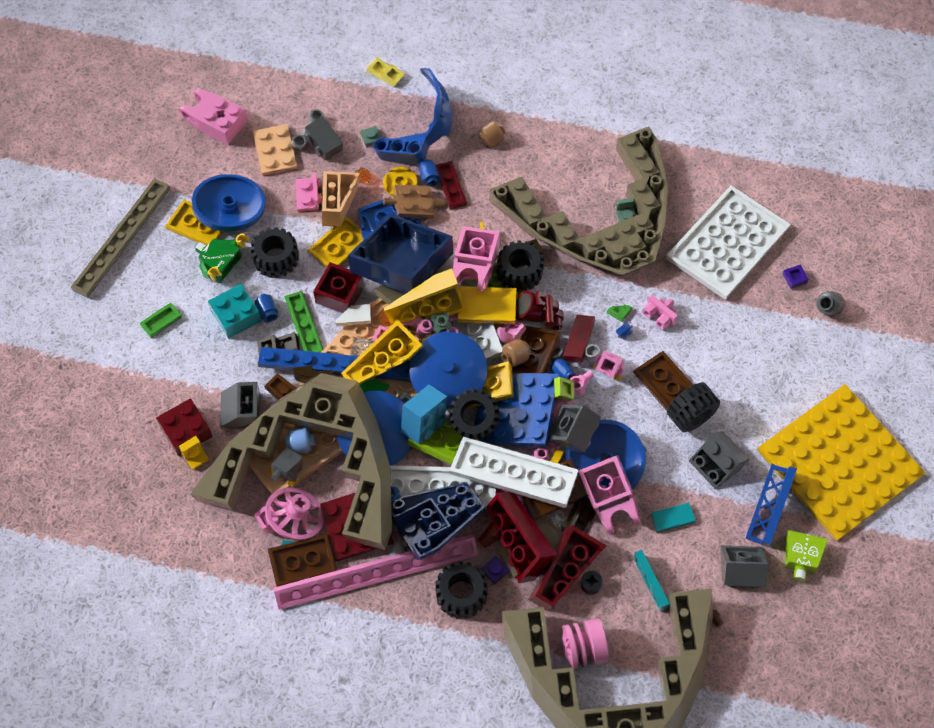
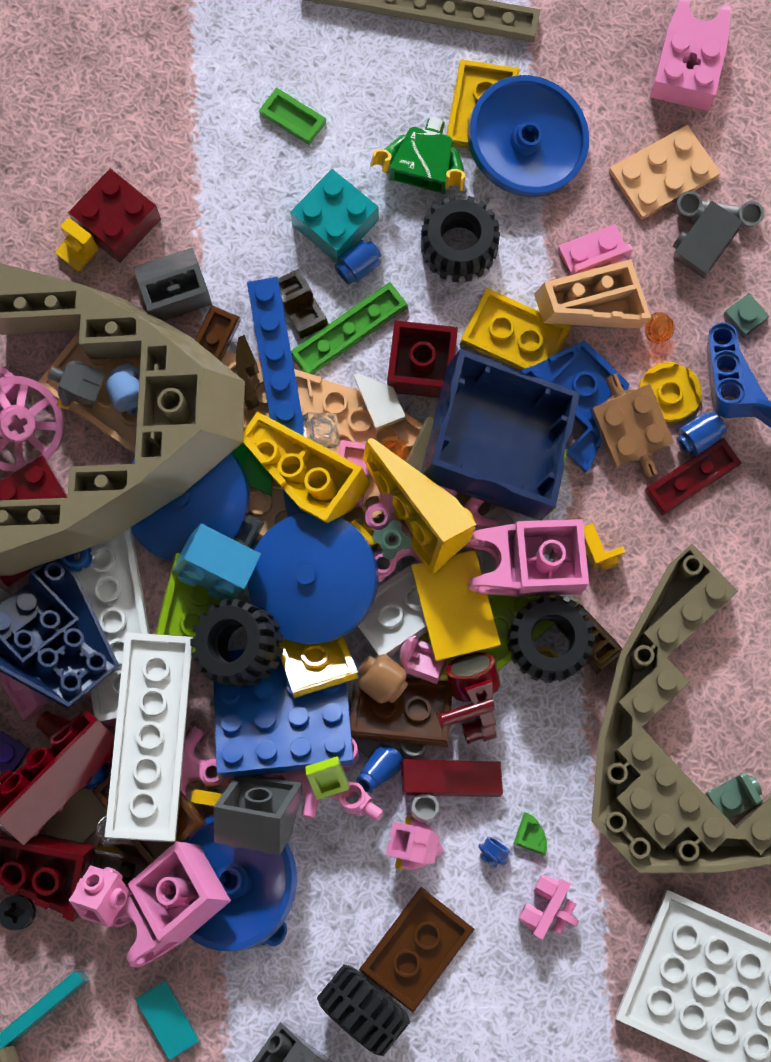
camera: 75 degrees right, 15 degrees up
(596, 522) = (100, 895): none -> bright pink brick

